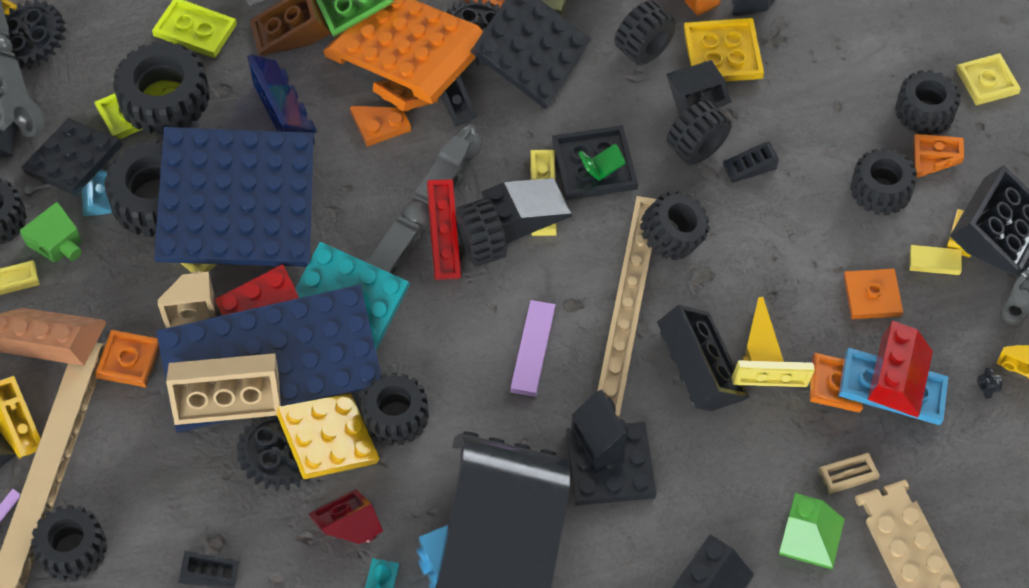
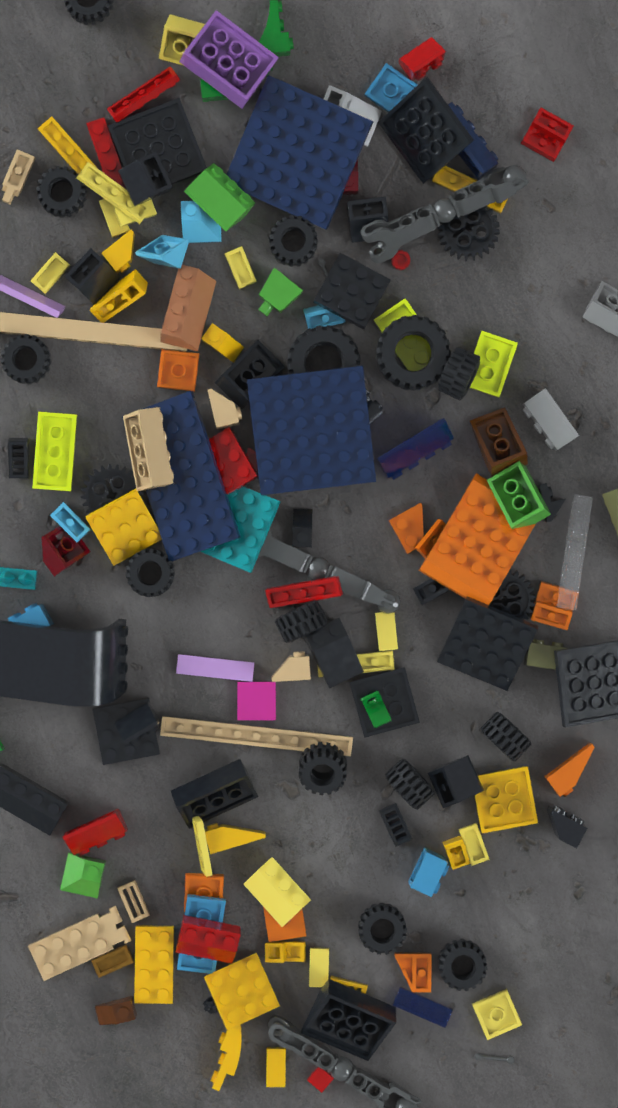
camera: 85 degrees right, 30 degrees up
(49, 107) = (401, 260): none -> red tile
(102, 301) = (222, 343): none -> yellow slope
(145, 277) = (254, 363): none -> black slope
(199, 35) = (459, 373): none -> black tyre
(207, 520) = (54, 451): none -> neon yellow plate
(309, 504) = (70, 522): none -> medium azure slope
(360, 235) = (302, 528): none -> black slope
(505, 155) = (386, 631): none -> light yellow tile
(539, 246) = (294, 668): none -> tan slope
(581, 303) = (256, 700): none -> dark pink tile
(749, 506) = (95, 832): none -> red slope
(777, 87) = (474, 844): none -> light yellow tile
(785, 101) = (456, 852): none -> yellow slope
(810, 124) = (428, 872): none -> dark azure brick
(835, 290) = (277, 892): none -> light yellow slope
(915, 295) = (285, 951): none -> yellow slope
(934, 506) = (112, 960): none -> pearl gold tile
(937, 454) = (154, 964): none -> yellow plate
(971, 342) = (241, 991): none -> yellow plate
(982, 153) = (422, 1007): none -> clear blue tile
(1005, 503) = (116, 1011): none -> reddish brown slope

